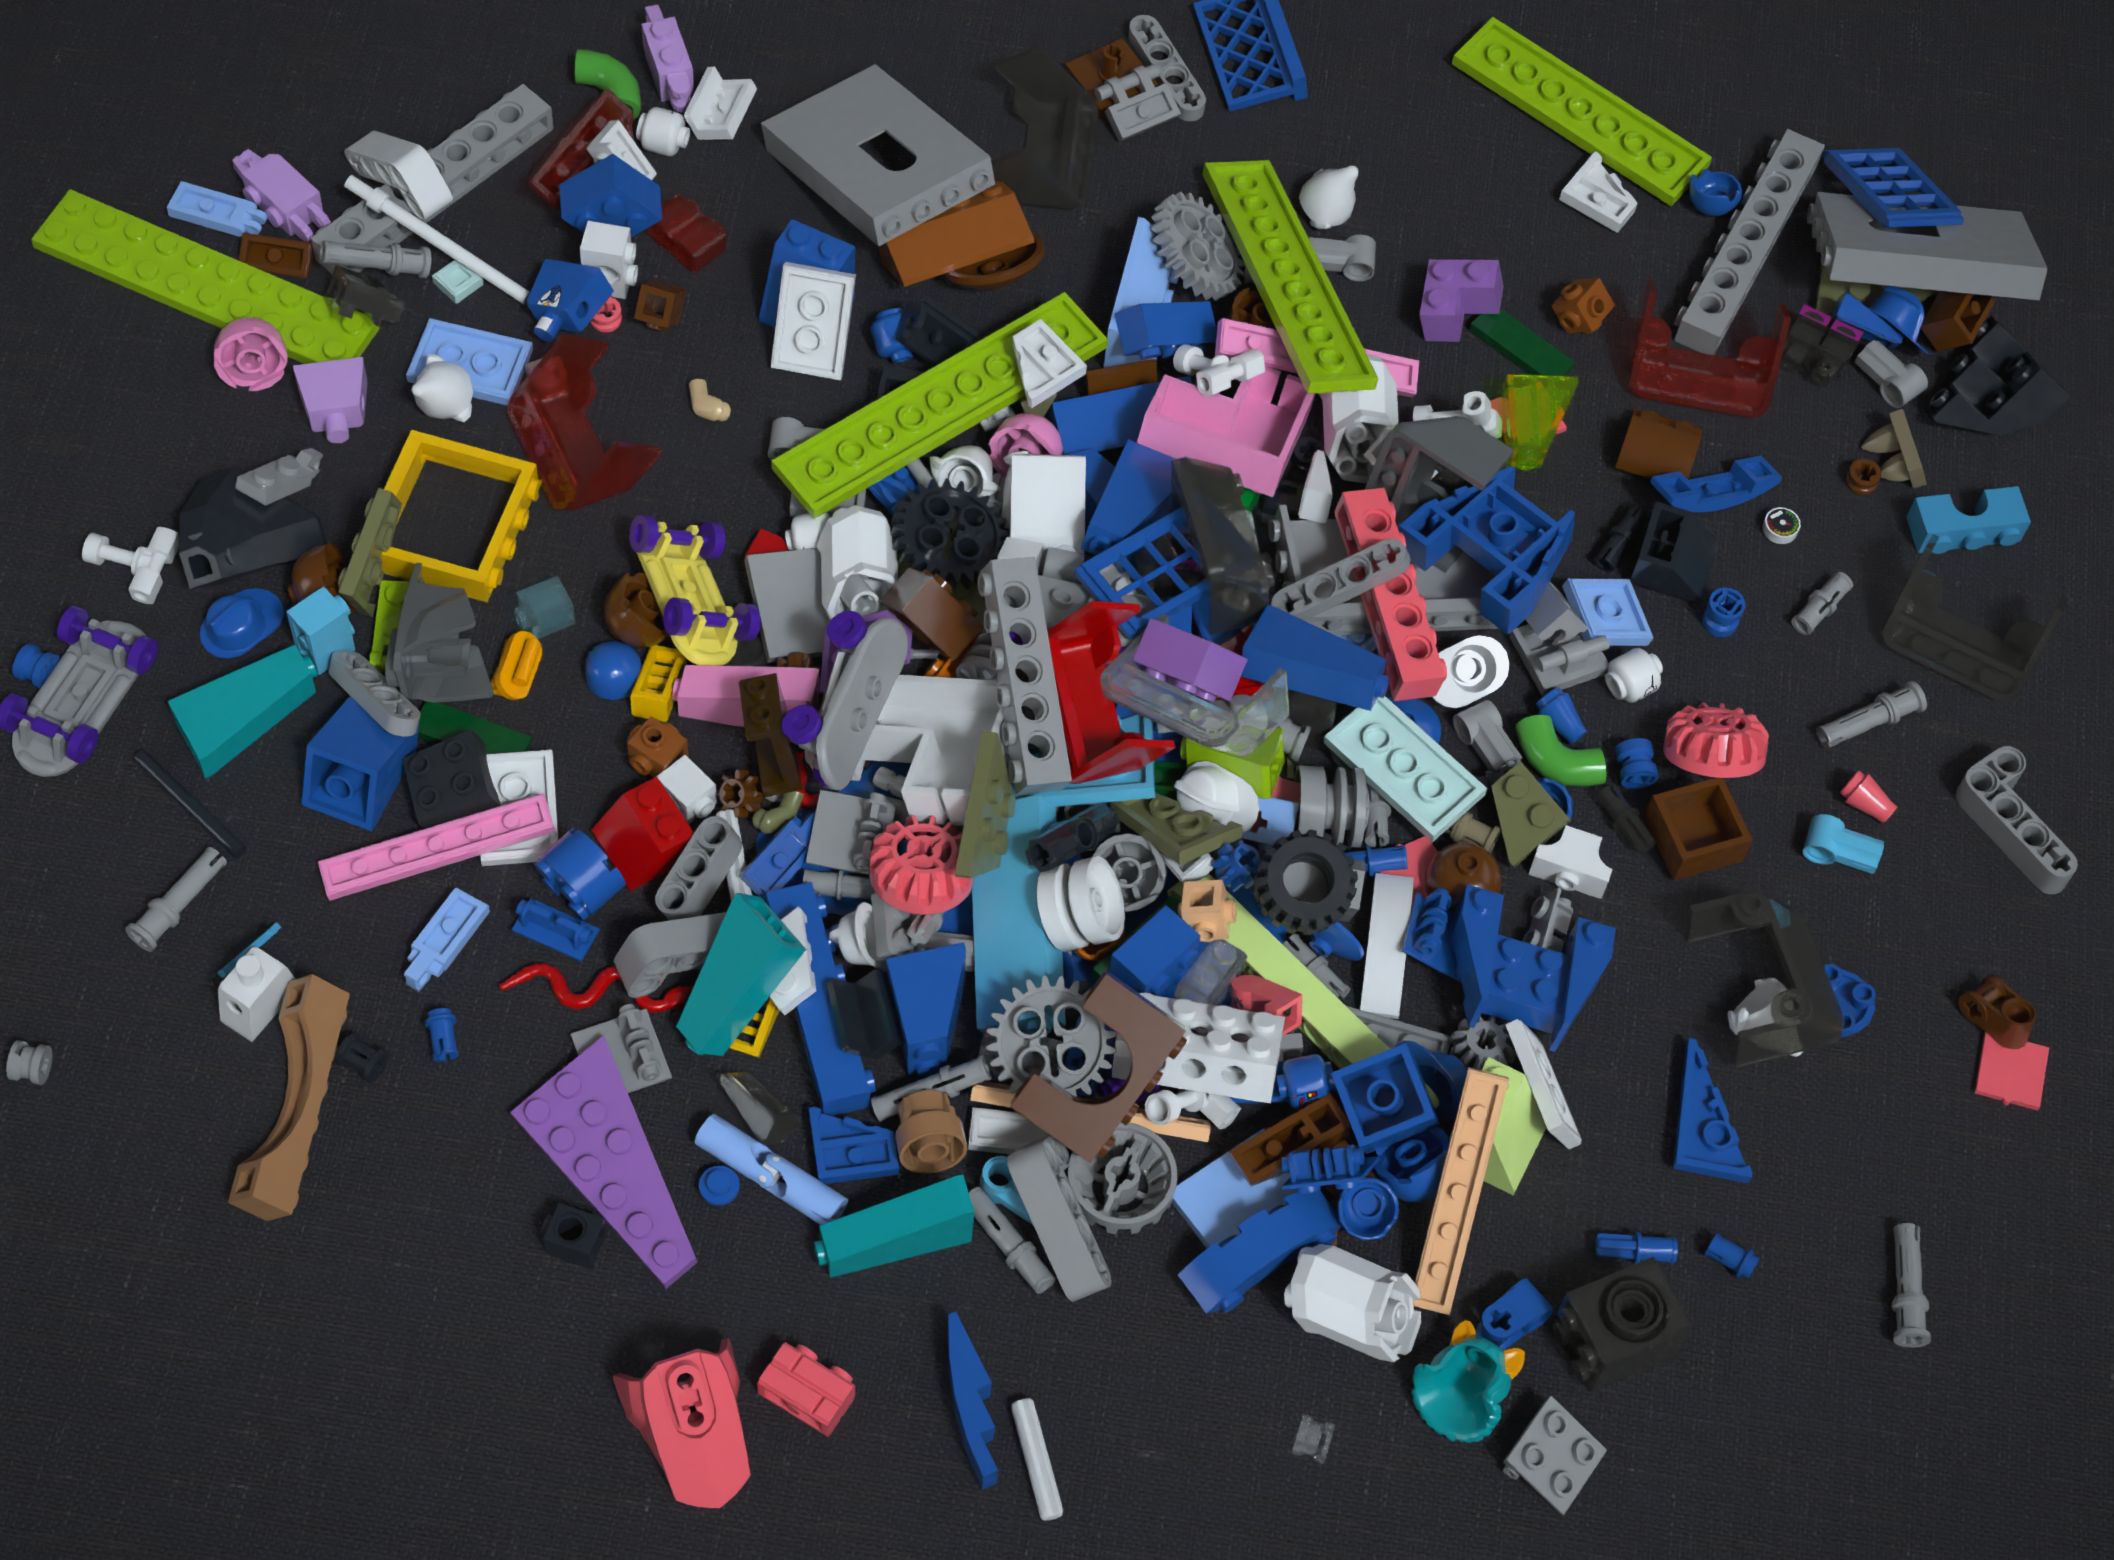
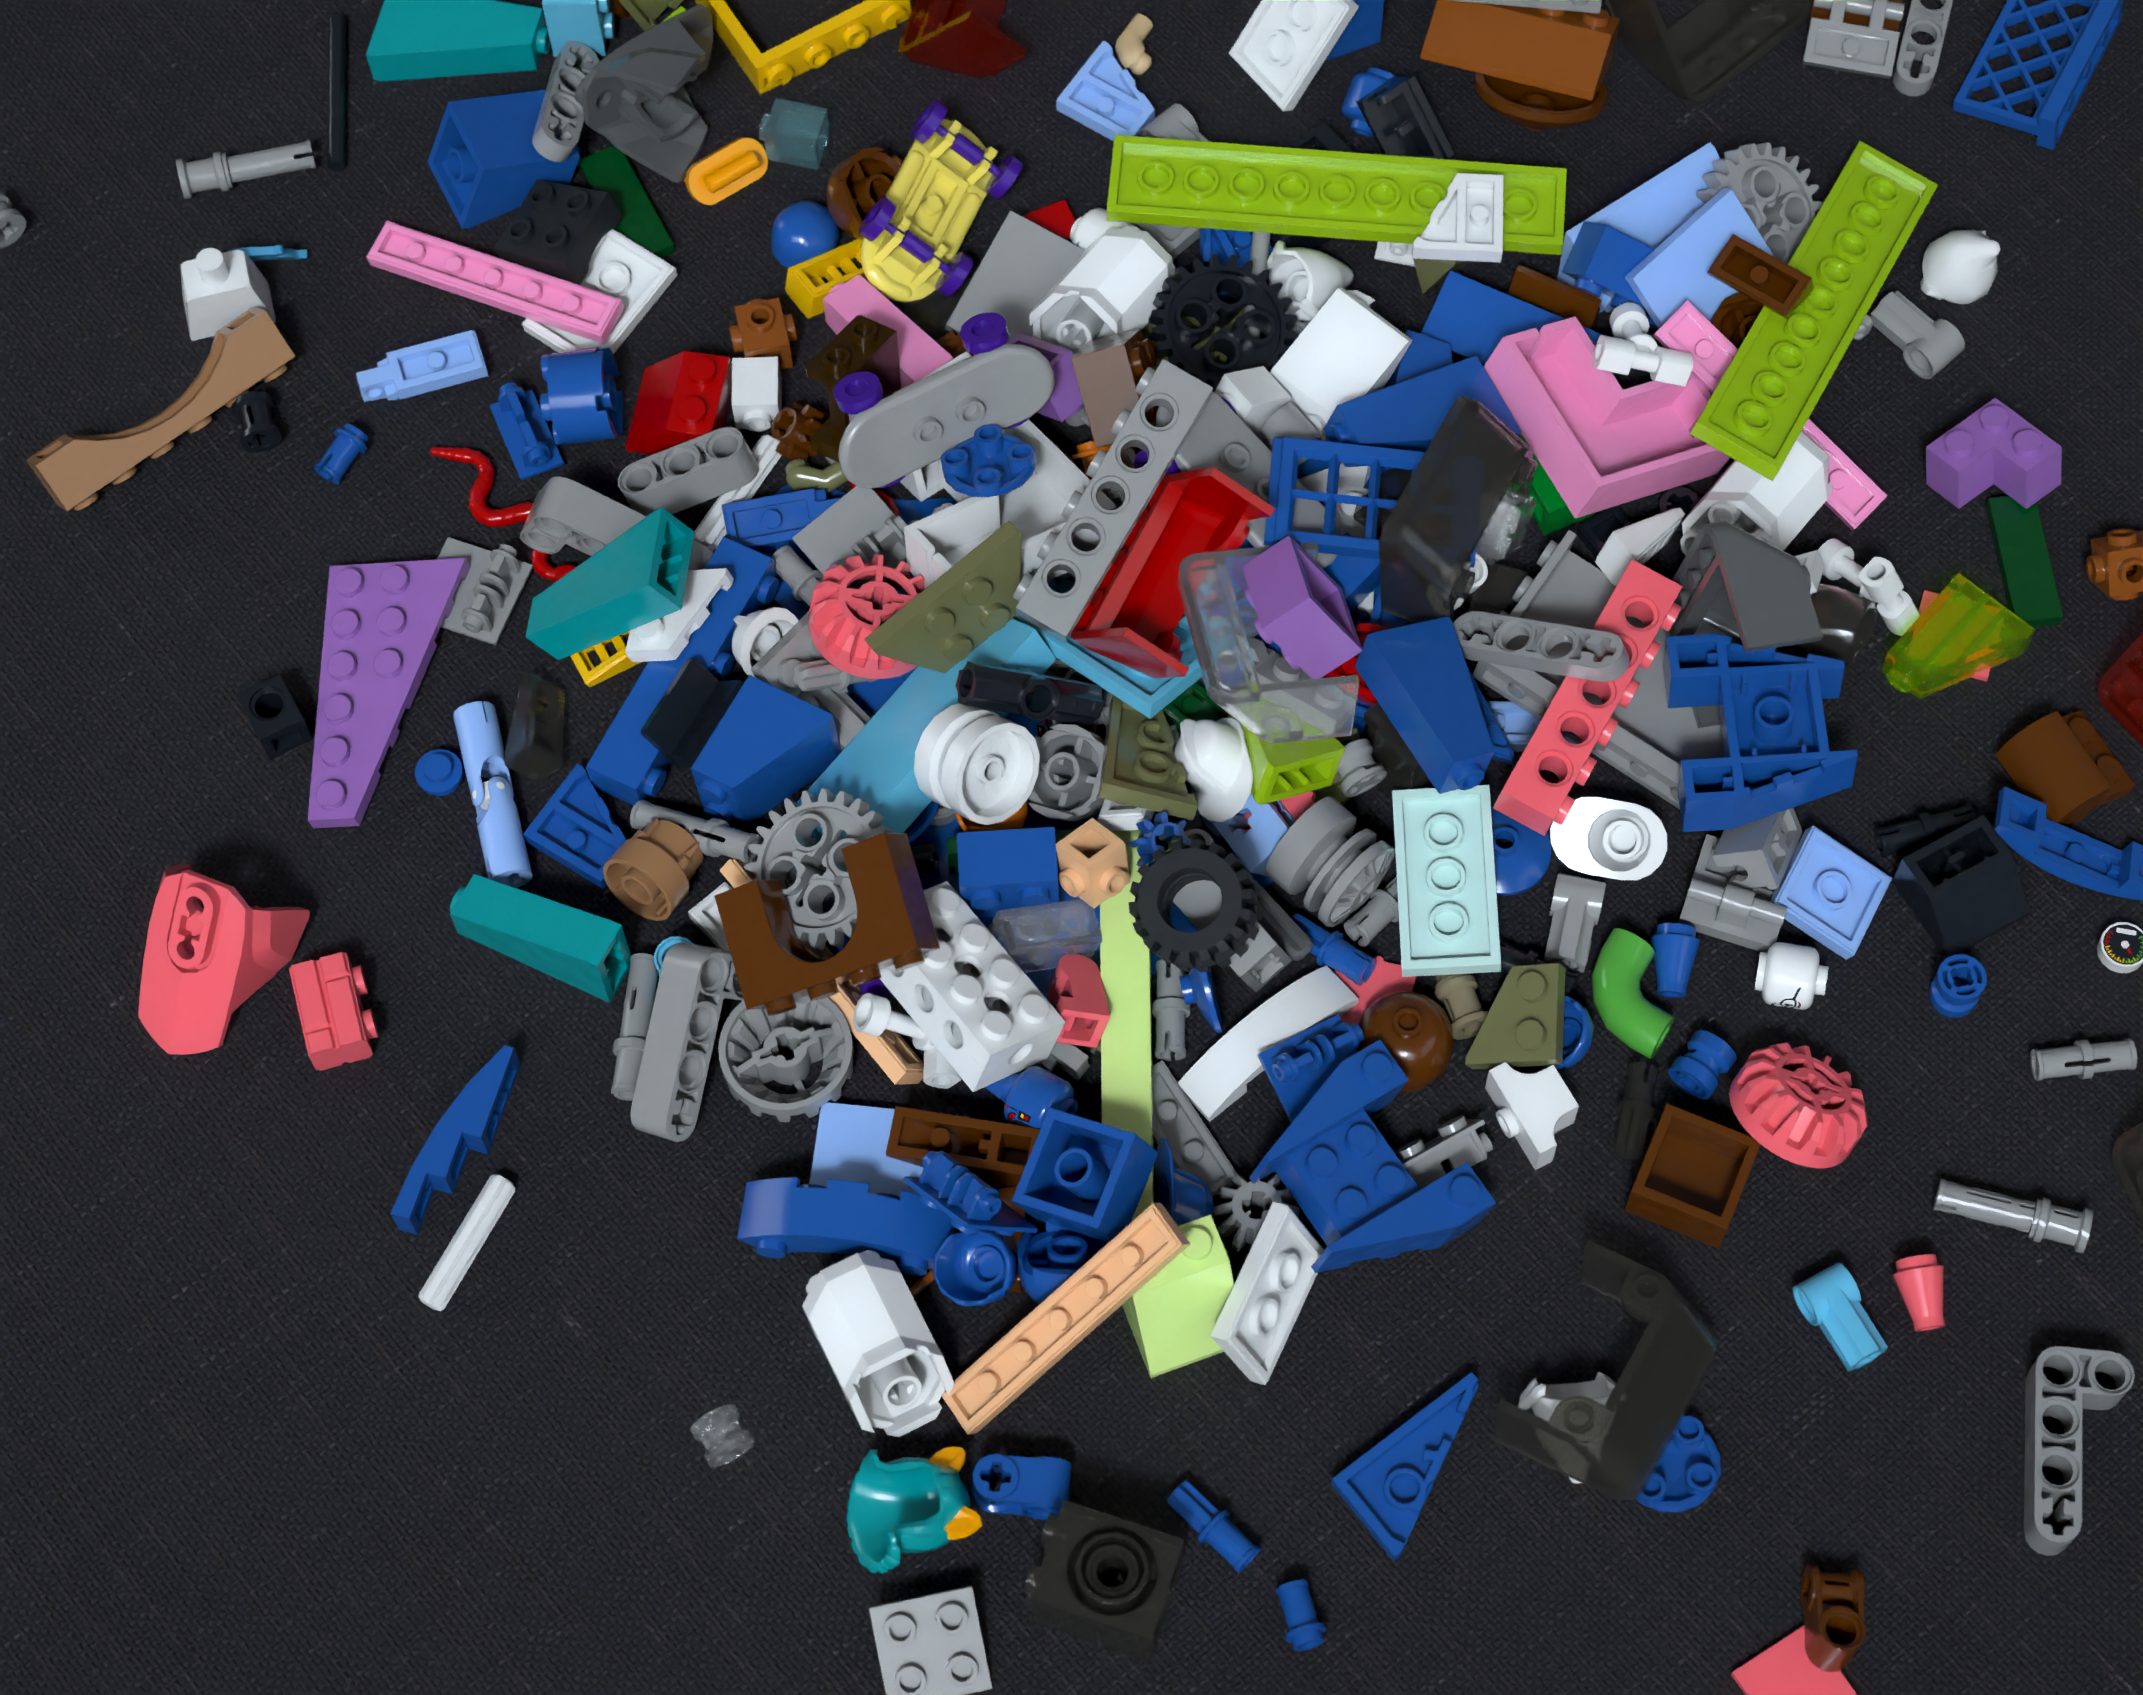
camera: 50 degrees right, 5 degrees up
(726, 447) = (1106, 97): none -> light blue wing
(911, 714) = (988, 463): none -> blue dish
(1023, 433) = (1398, 289): bright pink cylinder -> none
(1201, 293) = (1681, 263): none -> light blue tile
(1249, 275) = (1761, 277): none -> reddish brown slope

